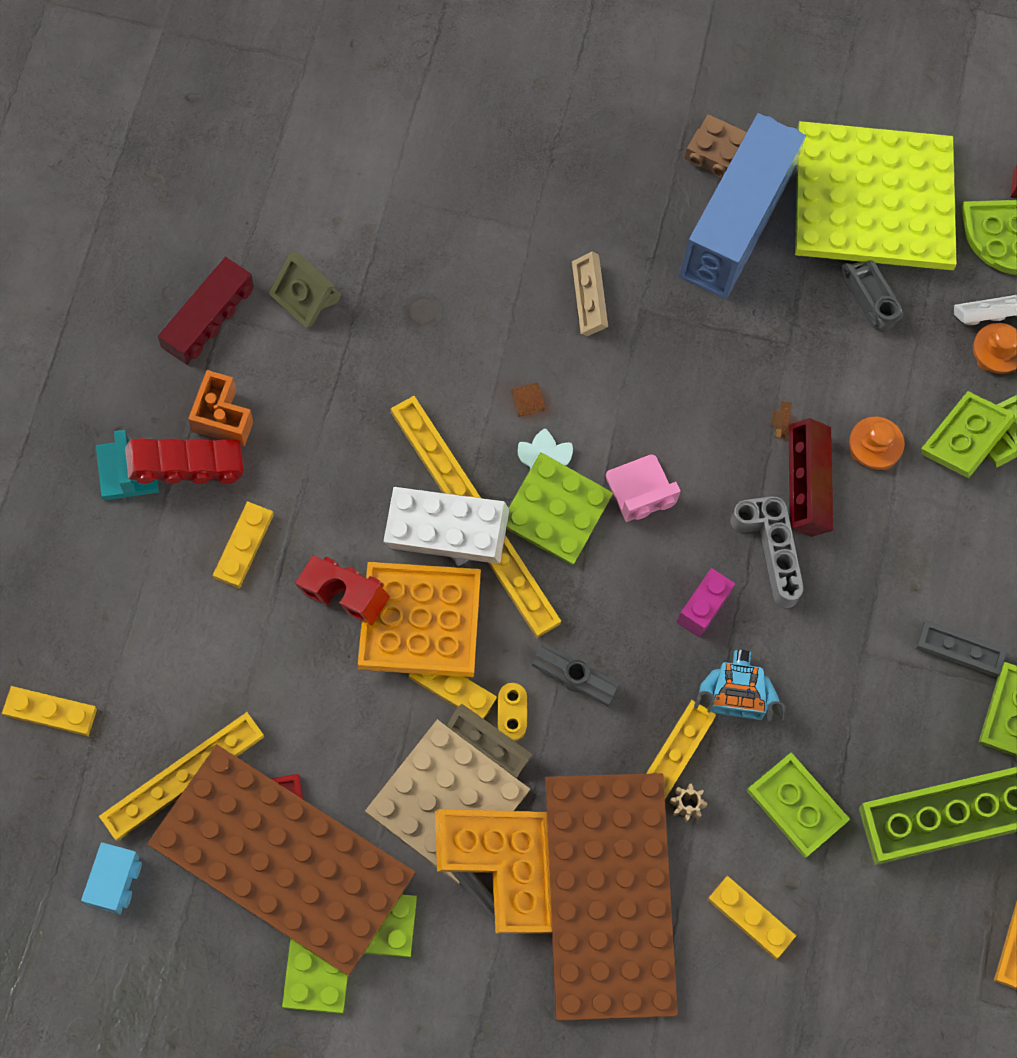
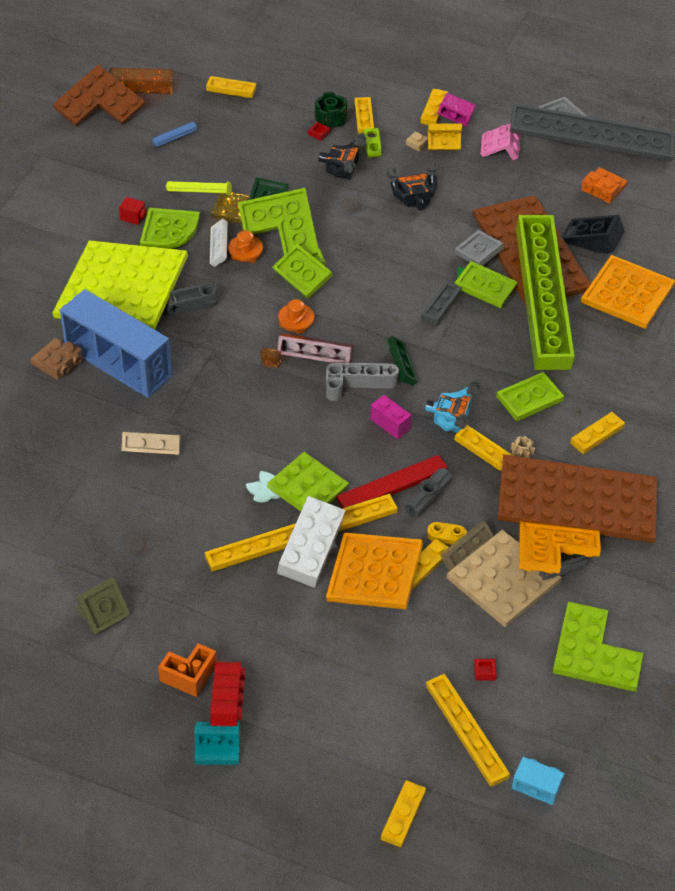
camera: 75 degrees left, 20 degrees down
(206, 311) = (101, 673): dark red brick -> none
(243, 545) = (295, 674): yellow plate -> none
(282, 859) = (535, 672): dark orange plate -> none
(325, 579) = (354, 593): red arch -> none
(528, 399) = (220, 491): clear orange plate -> none
(588, 625) = (393, 482): none -> red tile
(641, 488) = (303, 437): bright pink bracket -> none
(823, 605) = (402, 361): none -> dark green plate

